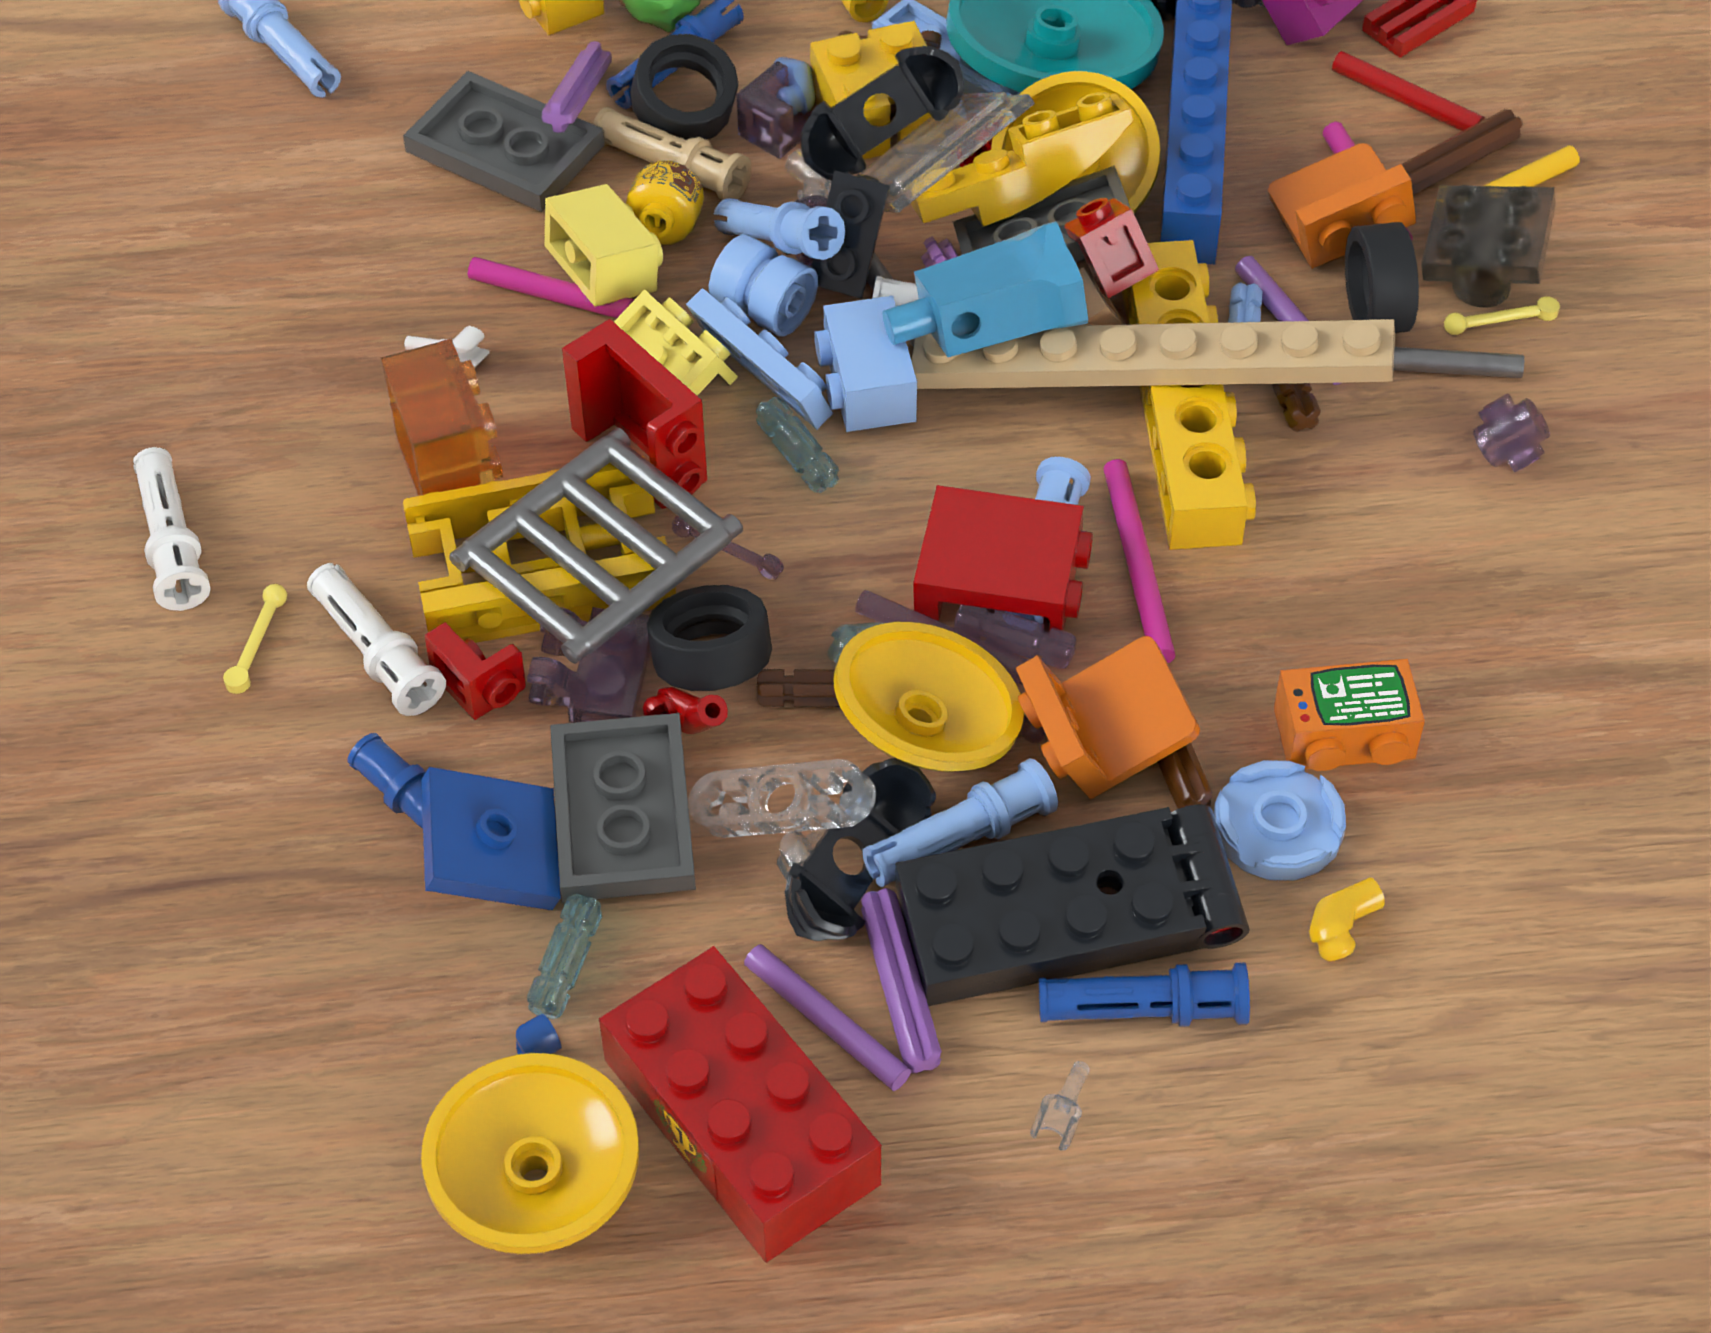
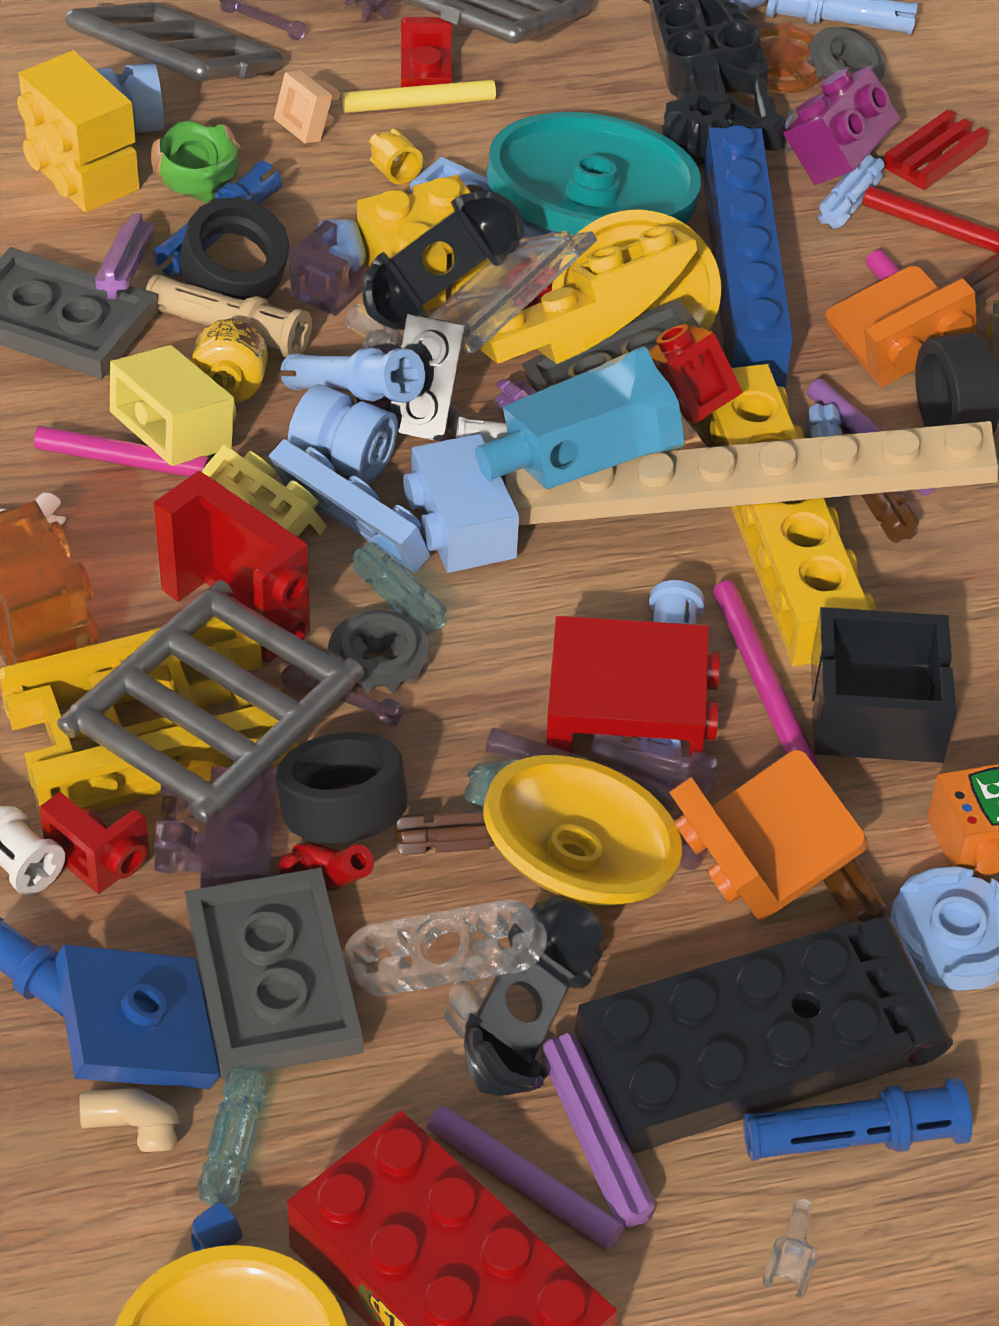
camera: 10 degrees left, 5 degrees down
(475, 921) = (131, 1107): none -> tan arm
(770, 487) = (380, 632): none -> dark grey gear
(985, 812) = (659, 945): light blue pin -> none
(1245, 577) = (882, 685): none -> black piece
(1319, 56) = (849, 192): none -> light blue axle

